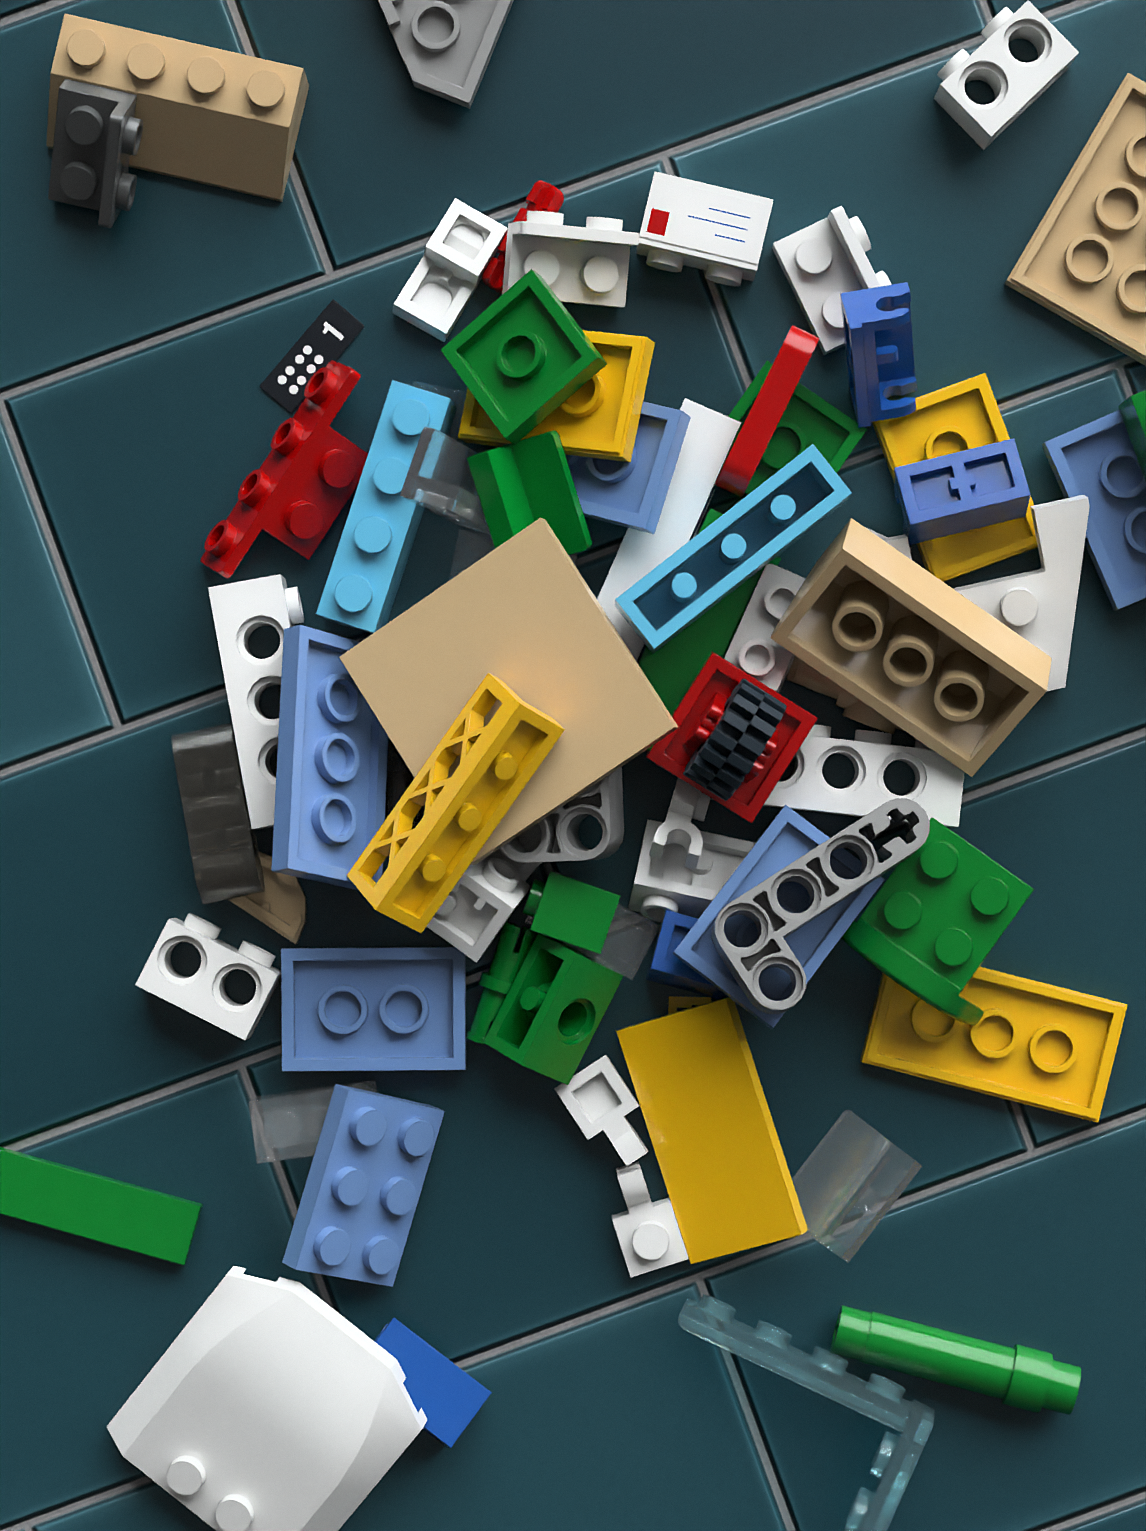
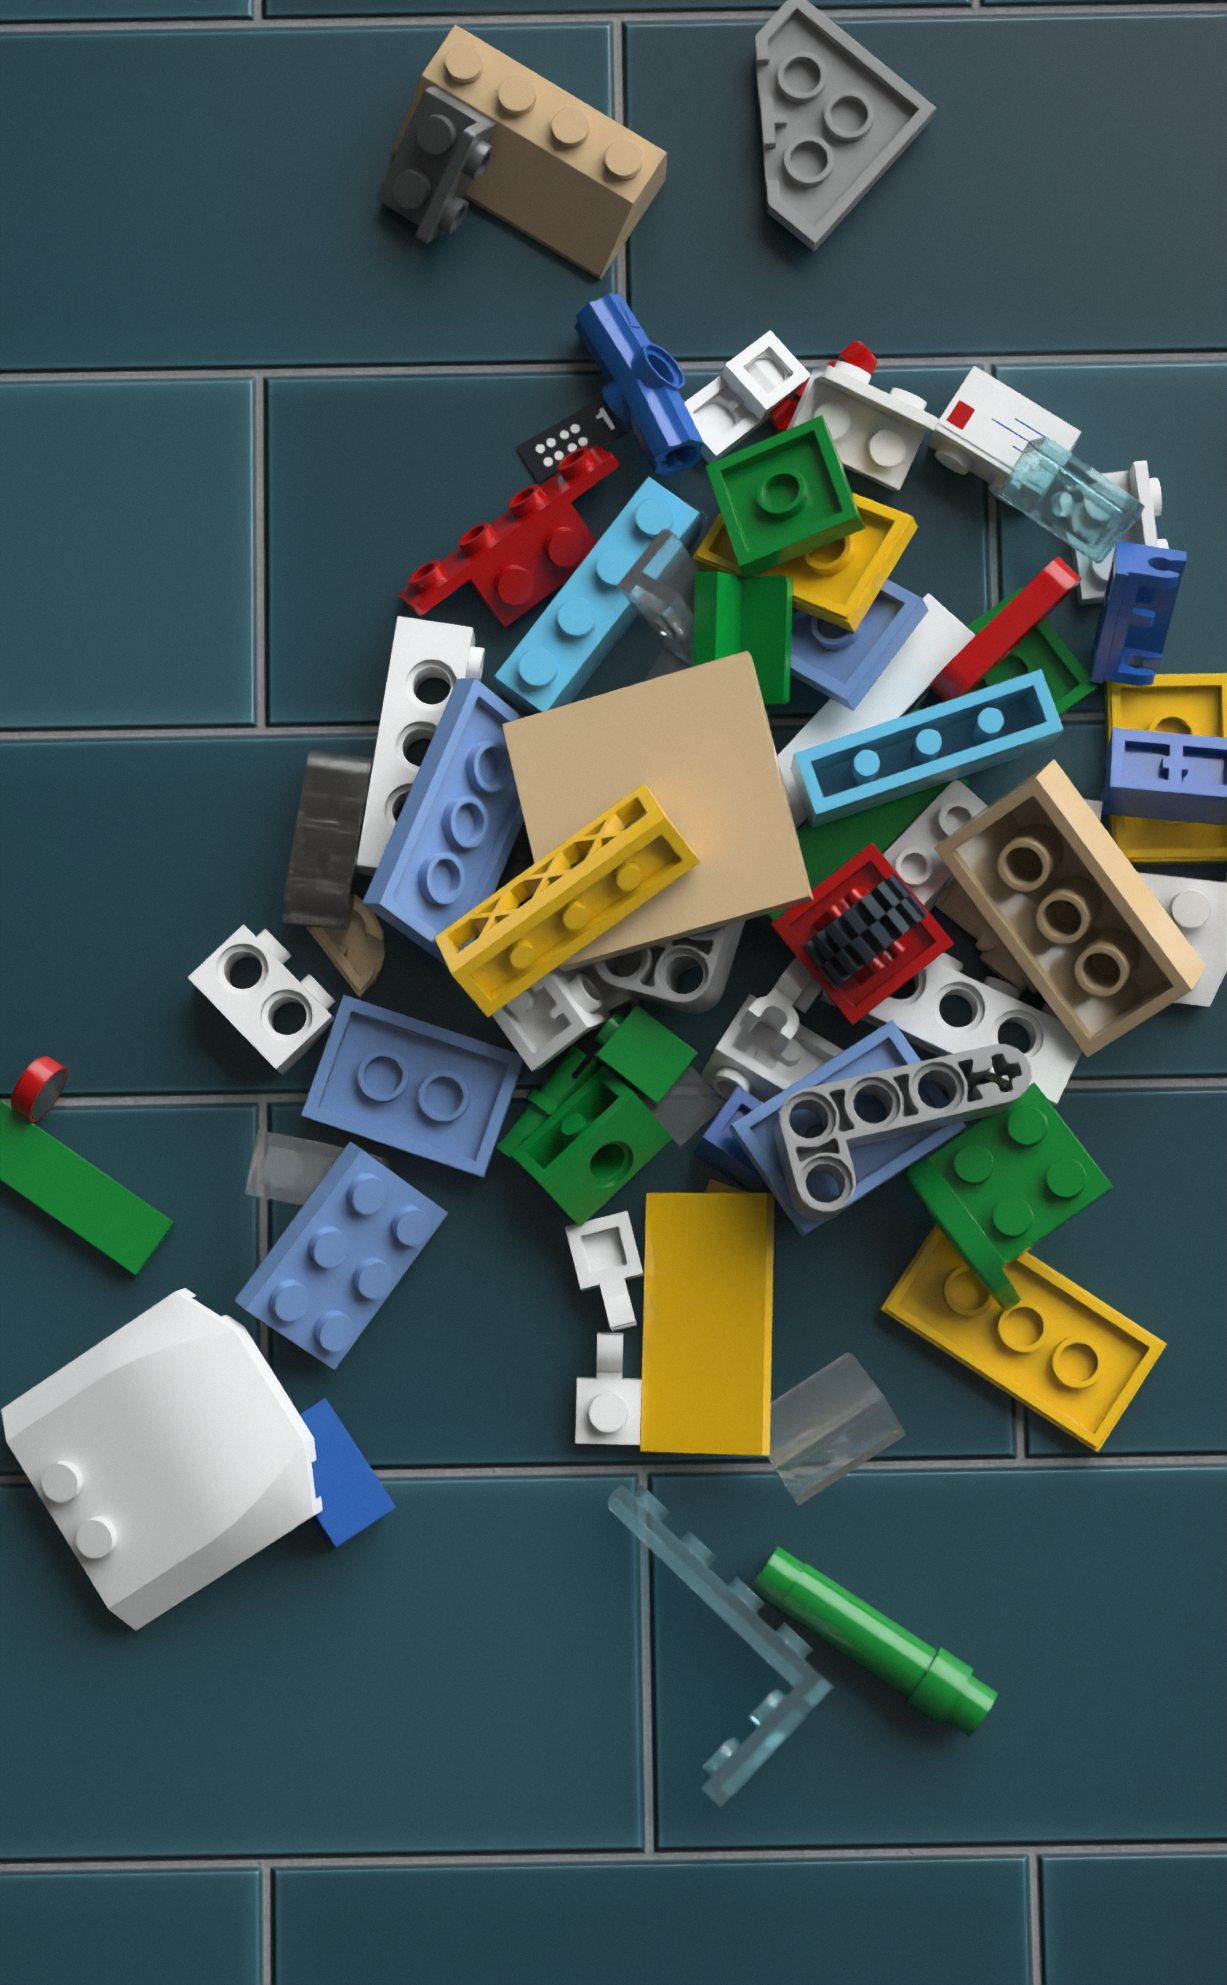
camera: 20 degrees right, 5 degrees down
(36, 1128) = (39, 1088): none -> red tile
(354, 292) = (641, 384): none -> blue piece
(784, 268) = (1070, 498): none -> clear light blue slope

